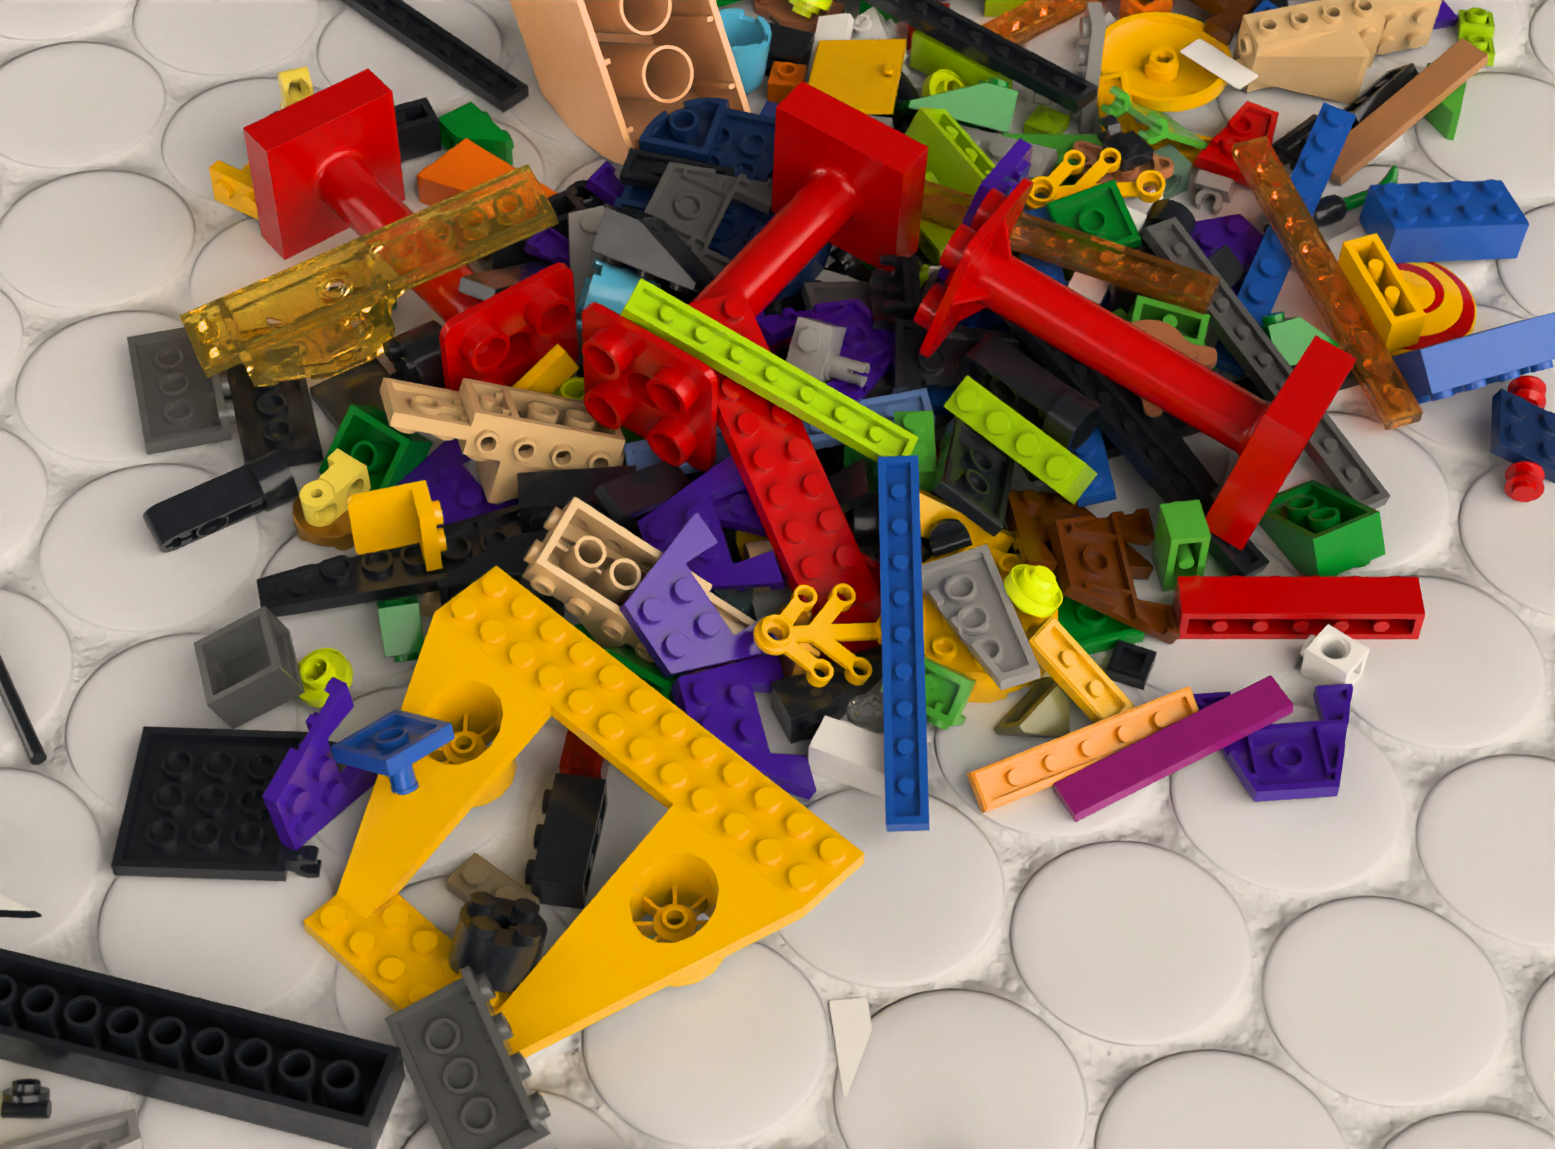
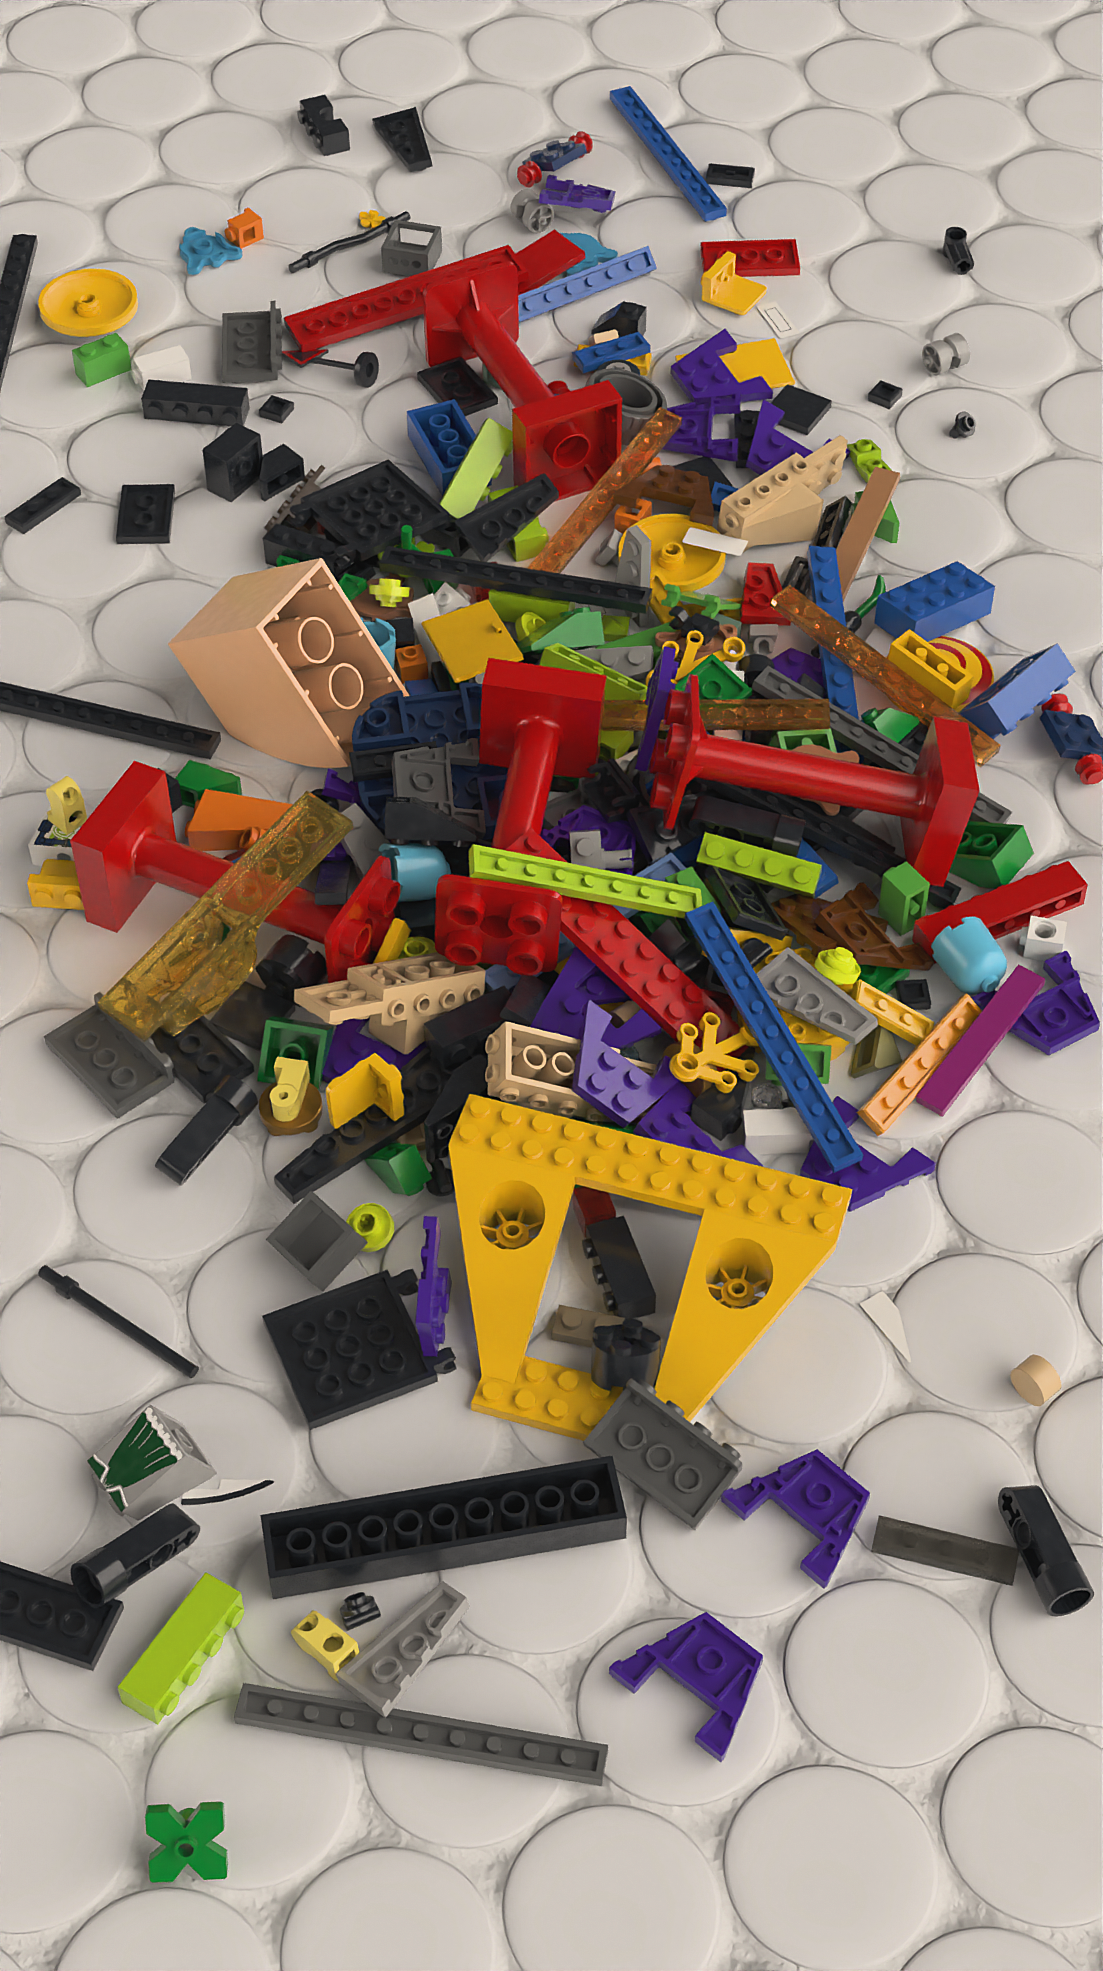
camera: 25 degrees left, 0 degrees up
(393, 745) = (482, 1249): blue tile -> none
(937, 854) = (871, 1175): none -> dark purple wing
(1220, 643) = (970, 956): none -> medium azure cylinder

